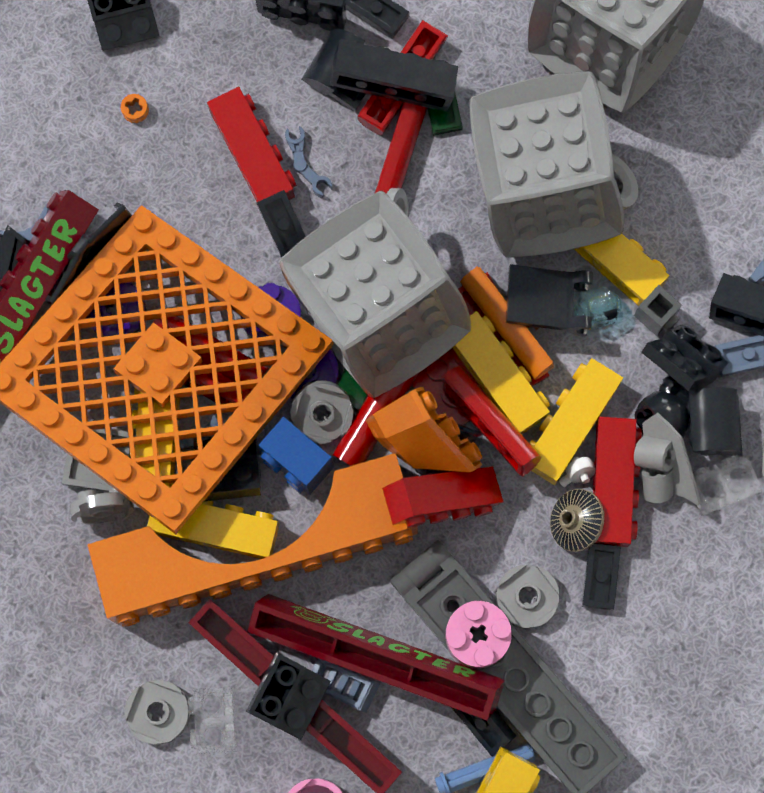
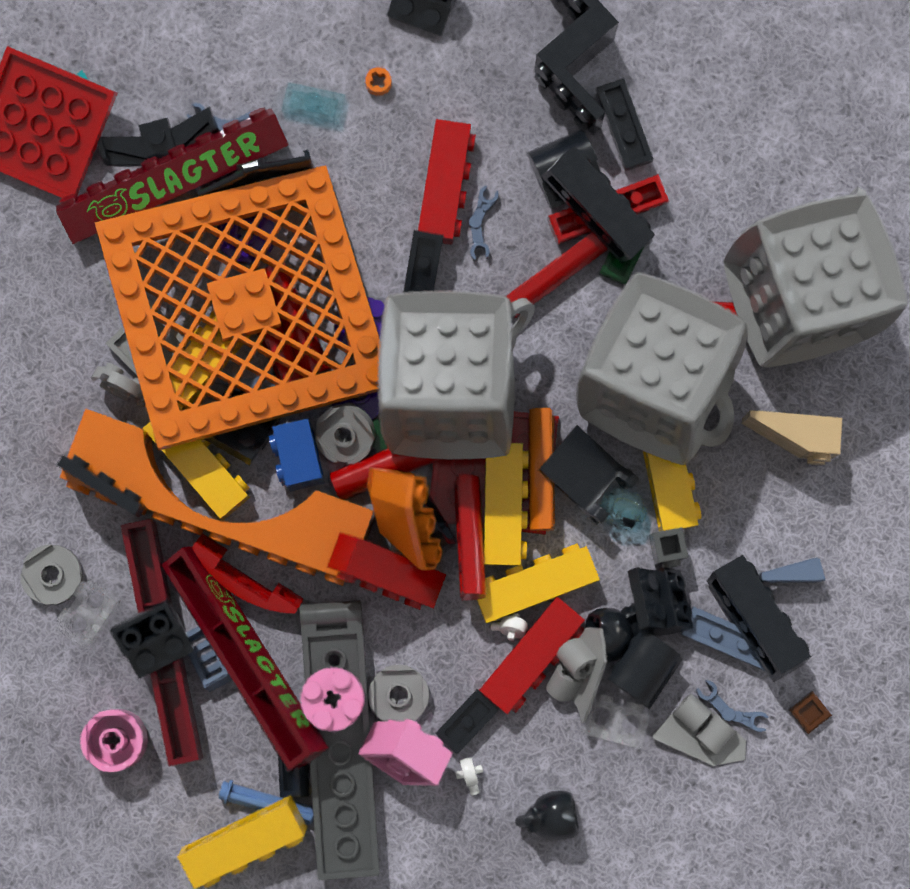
camera: 30 degrees right, 5 degrees up
(93, 164) = (313, 103): none -> clear light blue plate
(149, 595) = (102, 483): none -> black plate
(366, 591) = (241, 585): none -> red slope
(572, 636) = (406, 752): none -> bright pink brick
(586, 520) = (480, 664): dish -> none
(636, 618) = (469, 773): none -> white piece
(694, 144) = (801, 435): none -> tan slope
(731, 602) = (551, 816): none -> black piece

